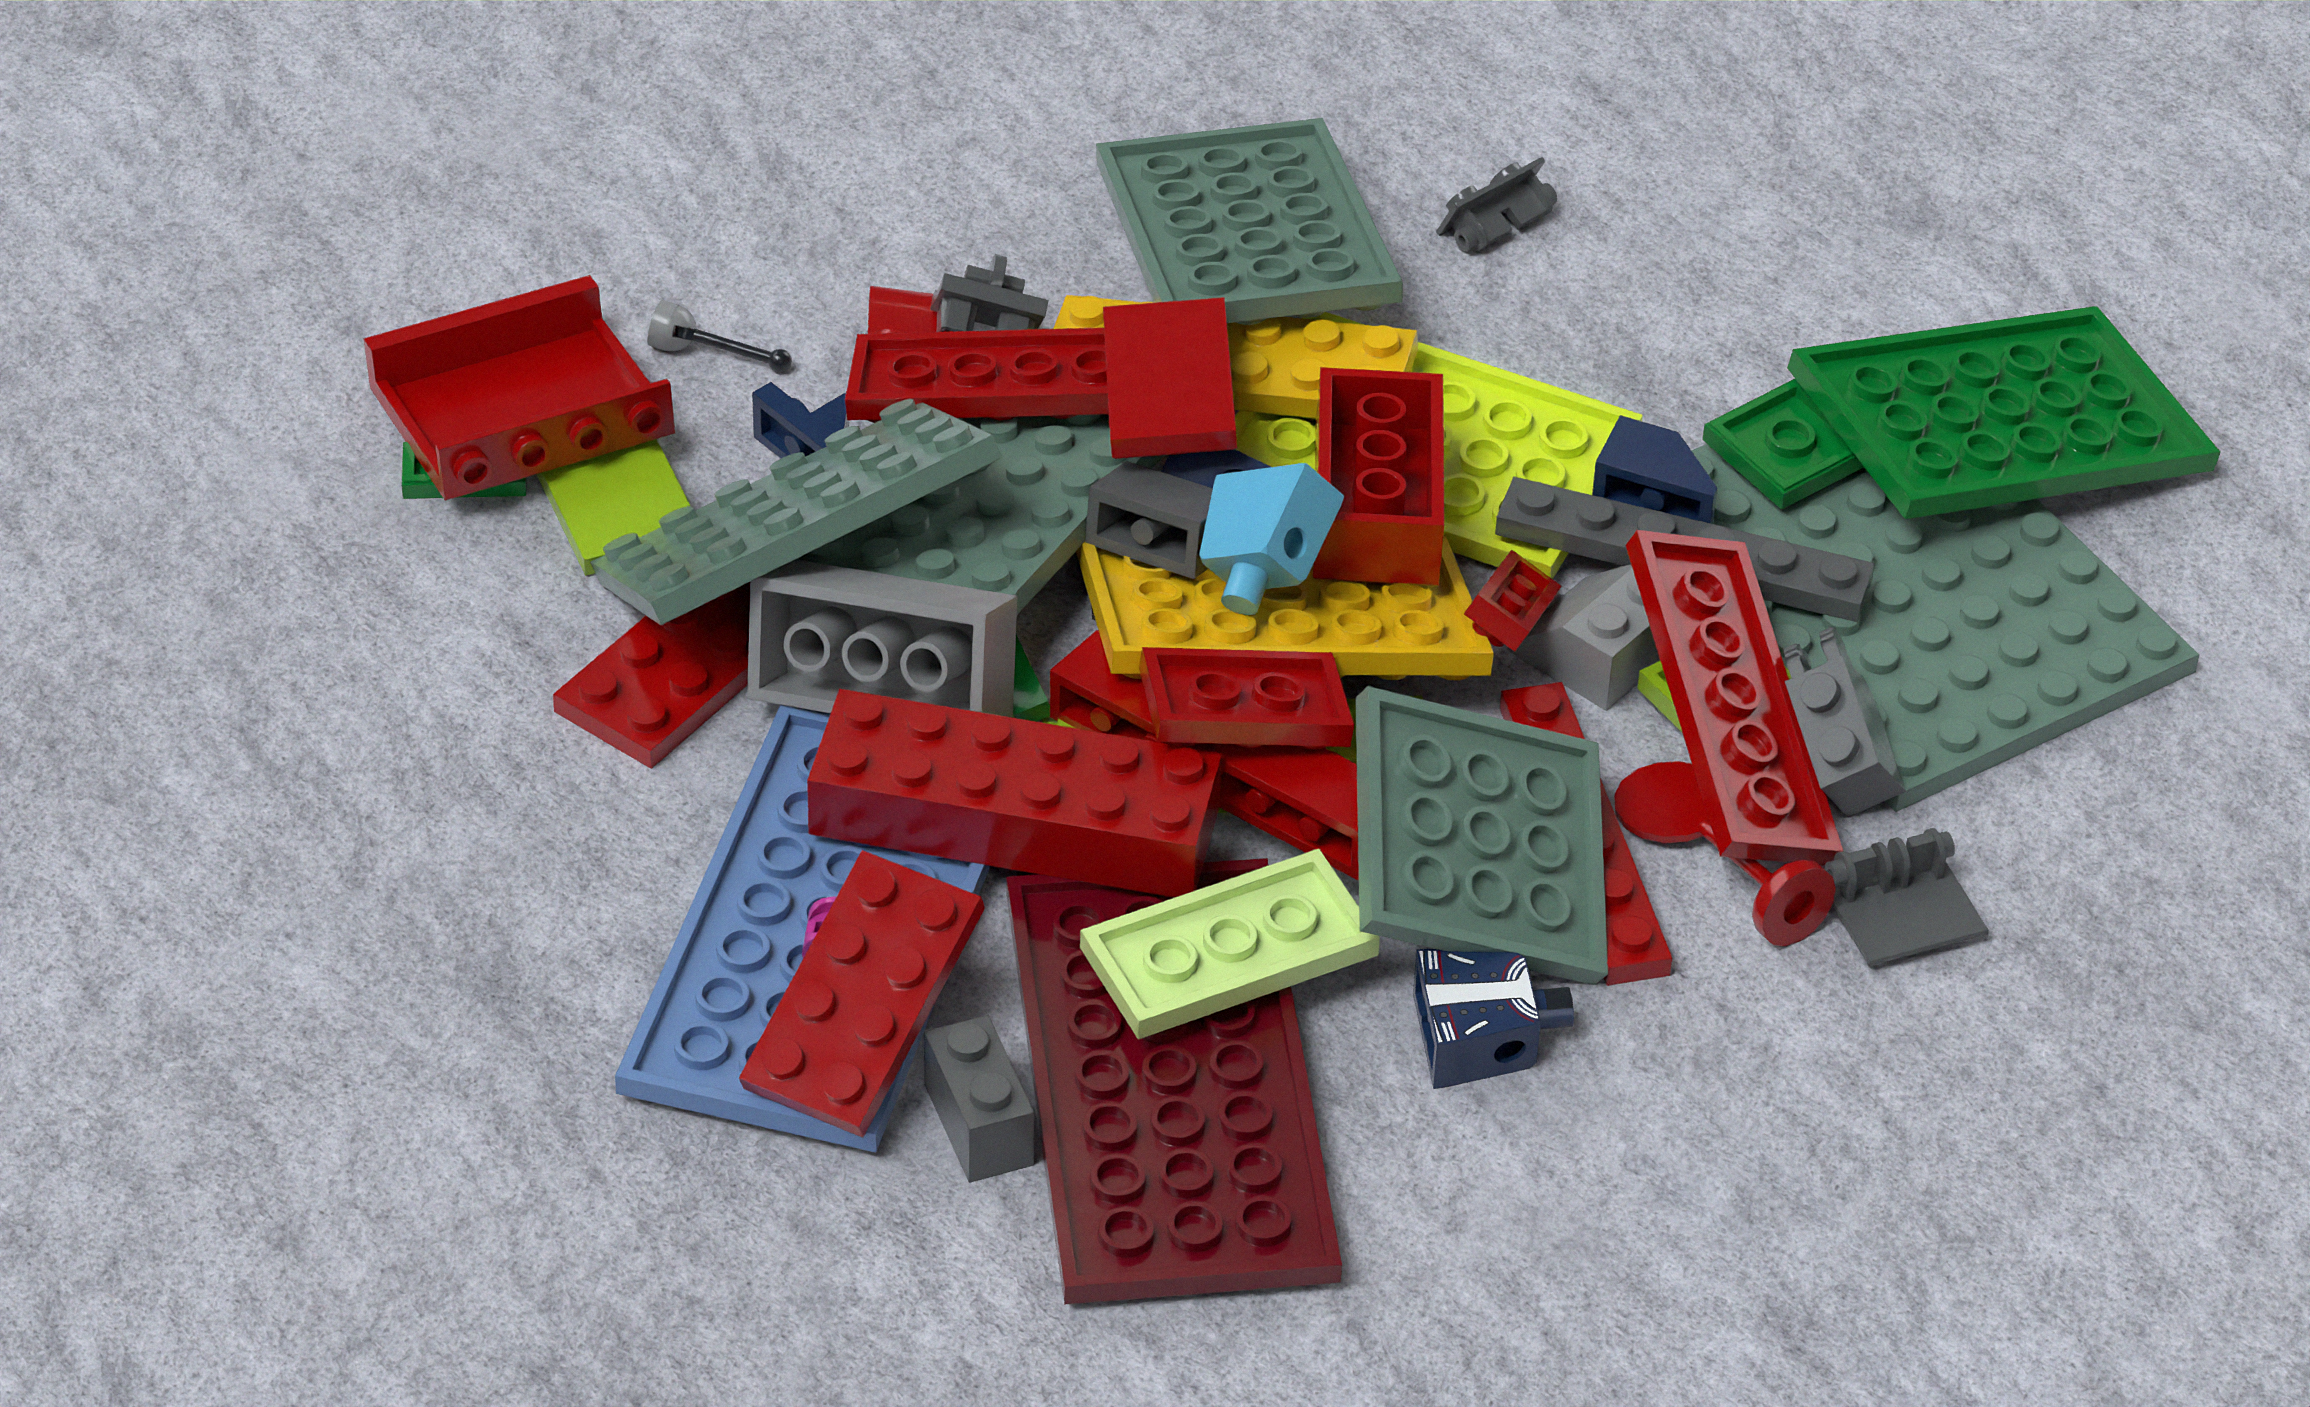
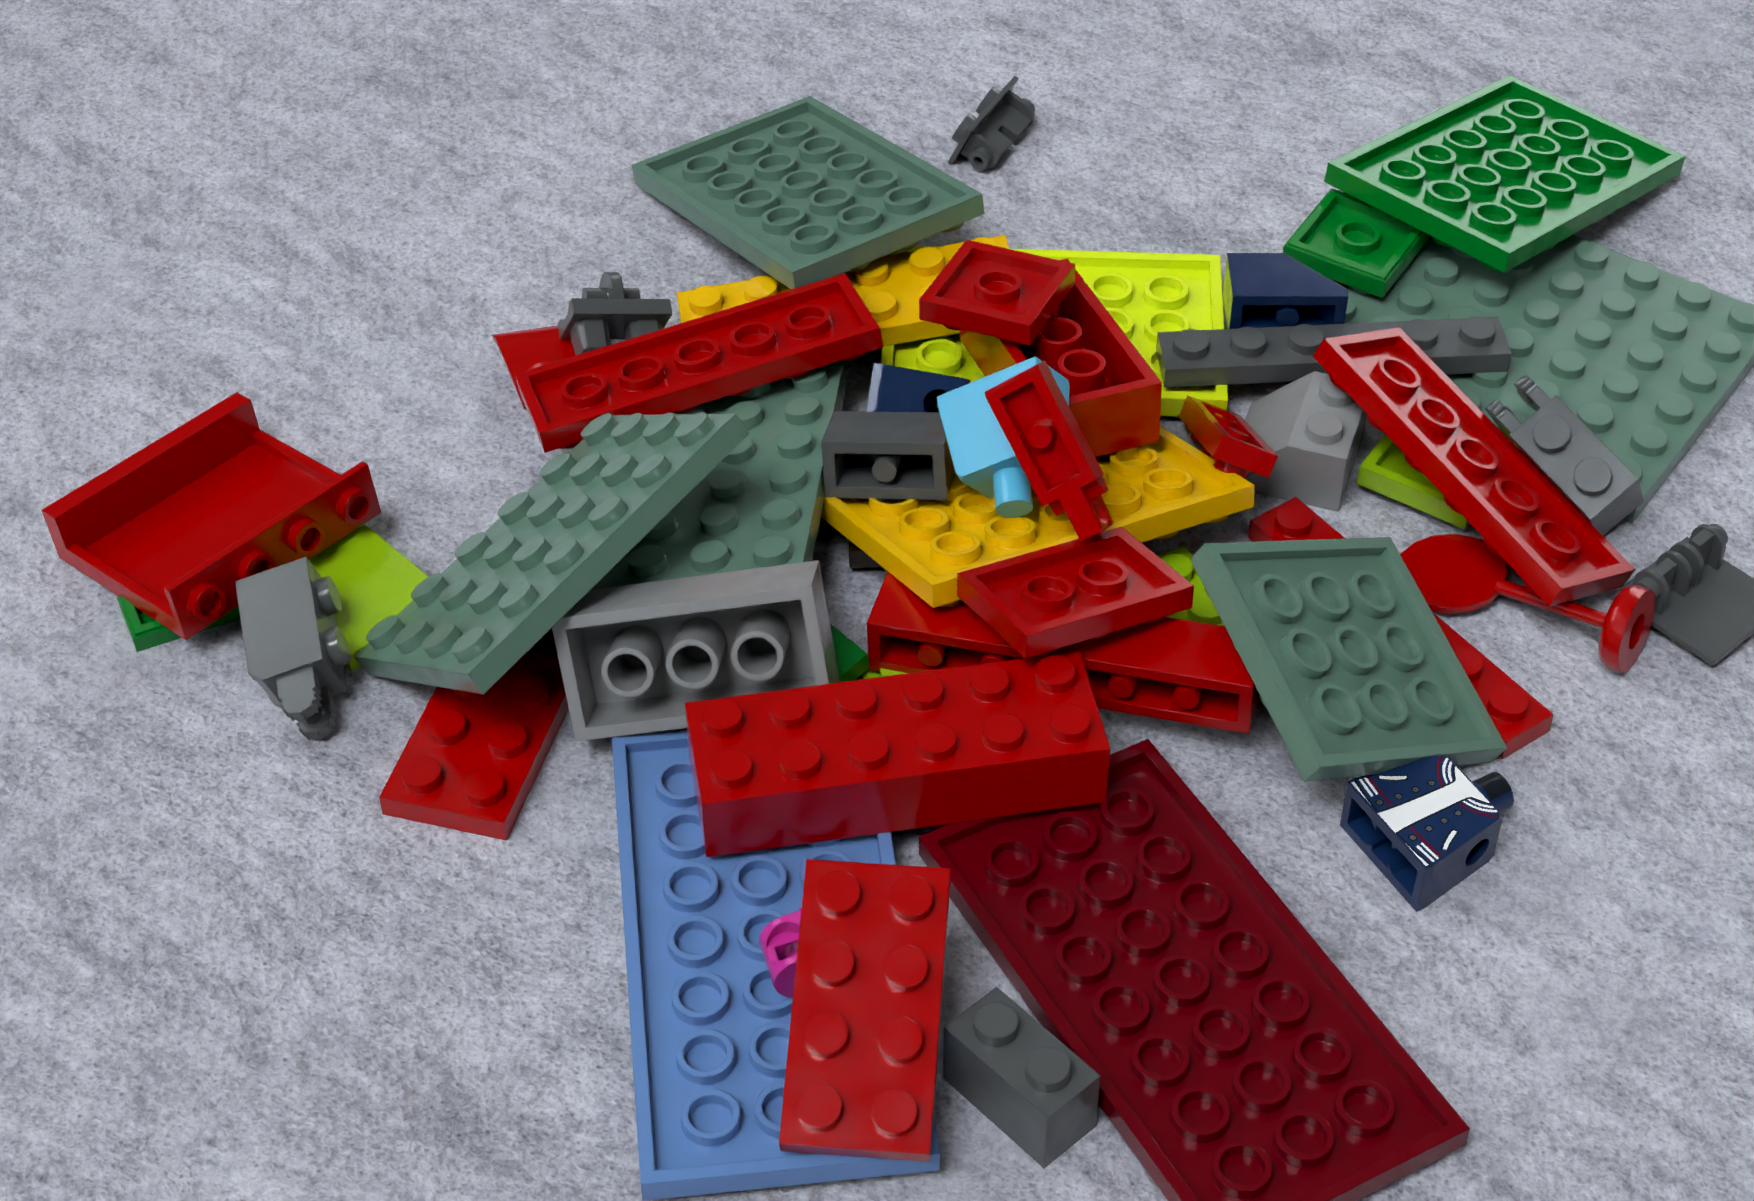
camera: 20 degrees left, 0 degrees up
(538, 531) = (295, 642): none -> hinge
(676, 329) = (335, 420): hinge -> none
(788, 426) = (491, 478): dark blue slope -> none
(1169, 378) = (838, 328): red tile -> none
(1228, 943) = (1173, 836): yellowish green plate -> none
(1277, 557) = (1052, 448): none -> red hinge
(1337, 388) = (997, 292): none -> red plate

